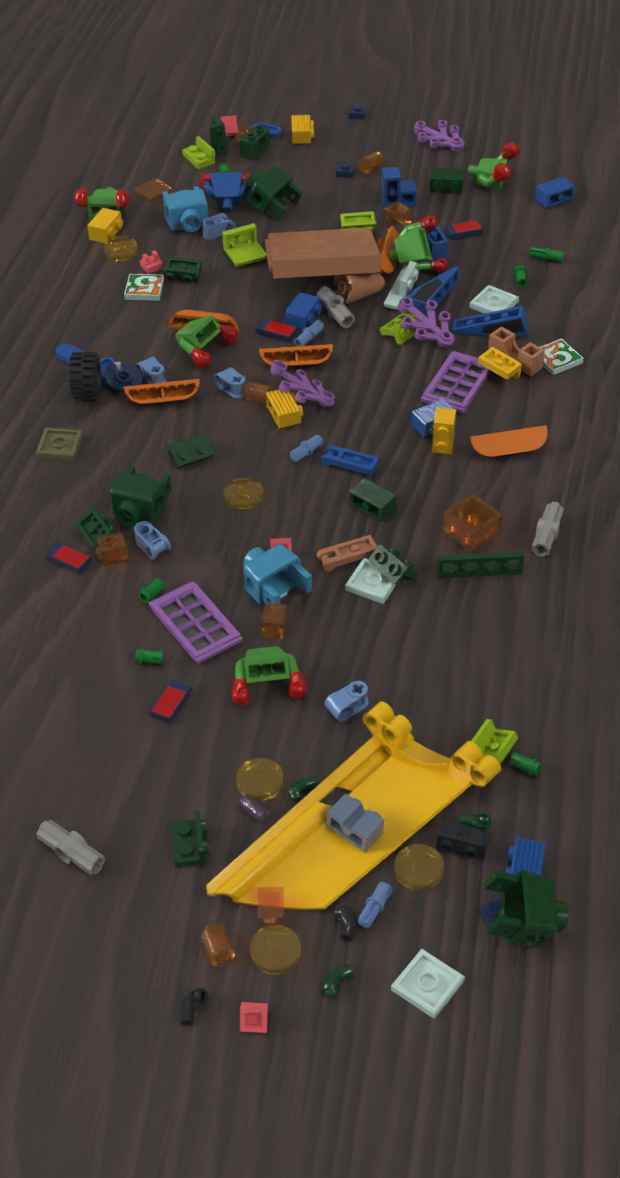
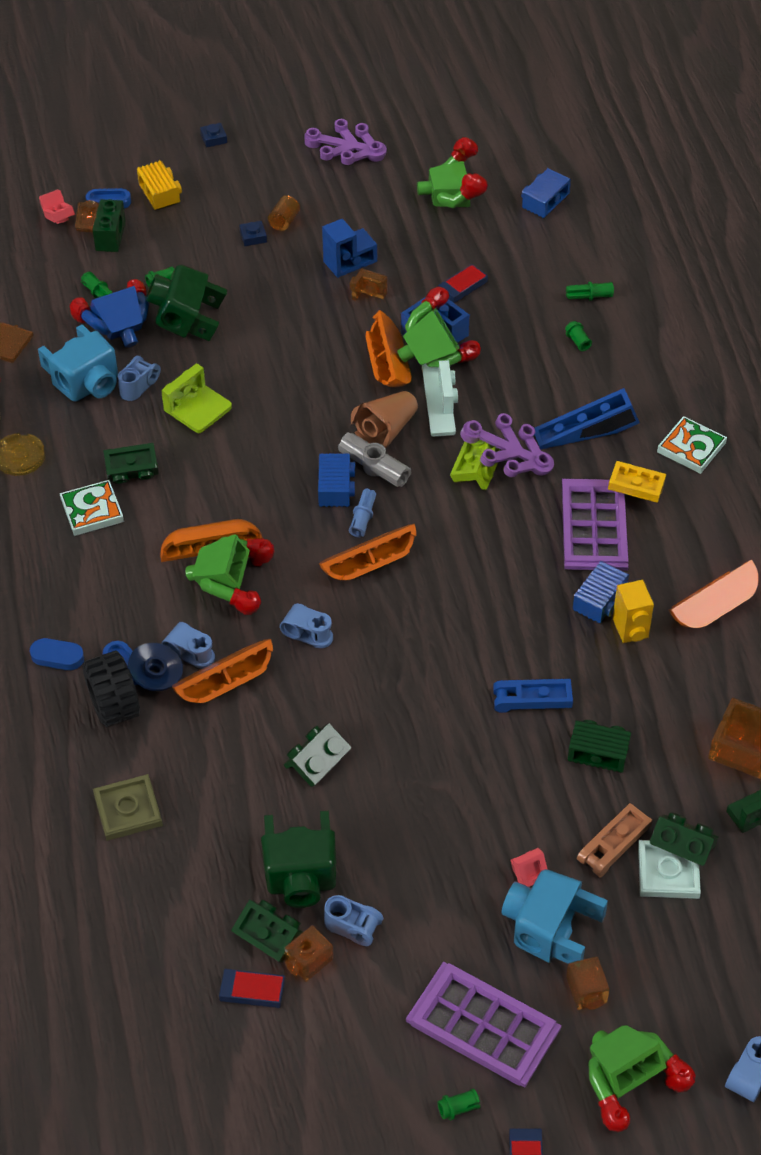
camera: 25 degrees left, 5 degrees up
(148, 593) = (397, 1003): green pin -> none
(151, 263) = (78, 465): coral tile -> none
(201, 154) = (40, 264): lime bracket -> none
(218, 135) = (56, 230): dark green bracket -> none
(243, 494) = (425, 796): clear yellow tile -> none
(256, 391) = (352, 629): clear orange brick -> none
(276, 330) = (314, 519): tile -> none
(284, 408) = (401, 643): yellow brick -> none
(302, 385) = (411, 600): medium lavender plant -> none
(306, 448) = (466, 695): medium blue axle -> none
(322, 253) = (318, 384): nougat panel -> none
(358, 220) = (324, 315): lime bracket -> none
(434, 289) = (483, 398): blue slope -> none
(446, 180) = (399, 213): dark green brick -> none
(493, 300) = (566, 385): light aqua tile -> none
(530, 355) = (624, 448): nougat arch -> none

